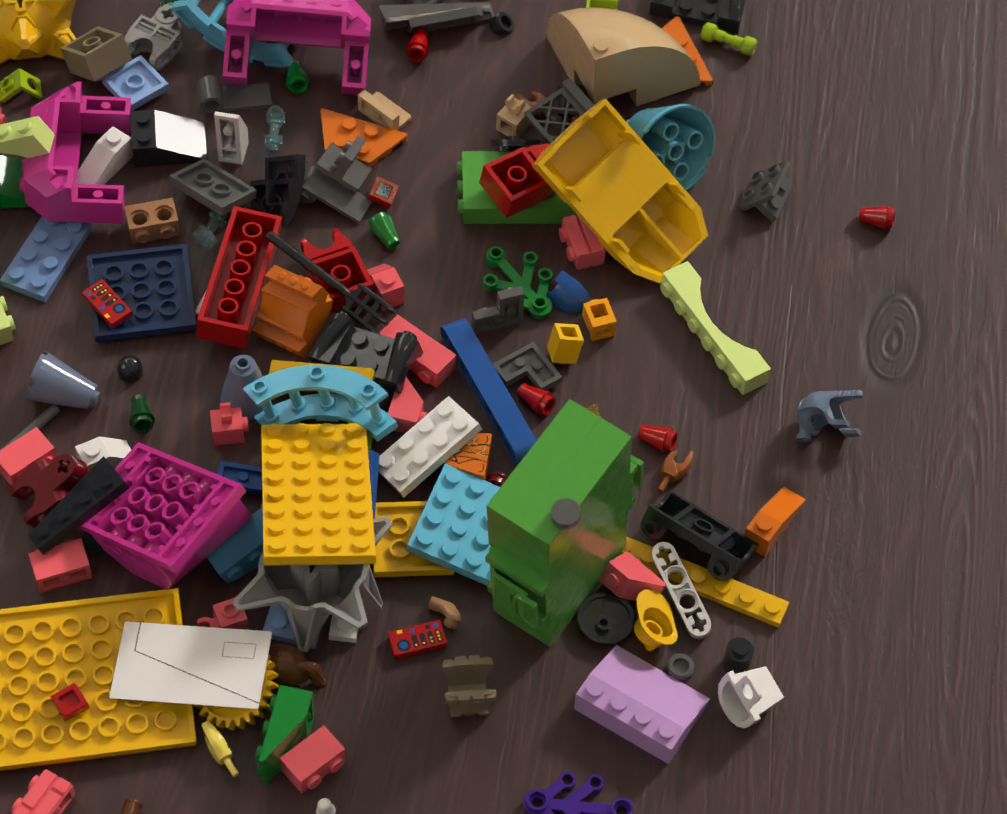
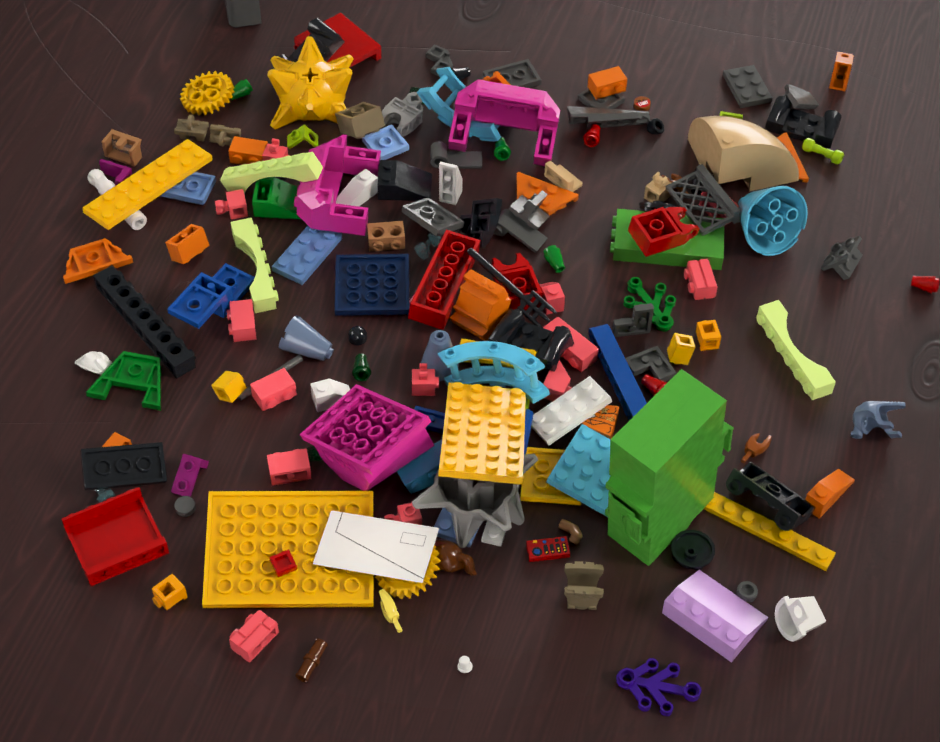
camera: 10 degrees right, 5 degrees down
(49, 483) = (289, 409): dark red piece -> none
(83, 502) = (313, 420): black wing -> none
(107, 303) = (346, 288): red tile -> none
(276, 118) = (484, 176): clear light blue bar -> none
(287, 727) = (440, 602): green slope -> none
(313, 759) = (459, 626): coral brick -> none
(383, 192) = (556, 232): tile -> none
(565, 513) = (670, 450): dark grey tile -> none
(568, 294) = (686, 315): blue brick -> none
(623, 193) = (735, 246): yellow piece -> none
(629, 577) = (716, 523): coral slope -> none
(655, 620) = (730, 554): yellow piece -> none
(660, 437) = (747, 423): red cone -> none
(678, 591) = (755, 533): white beam -> none
(738, 655) = (793, 586): black brick -> none

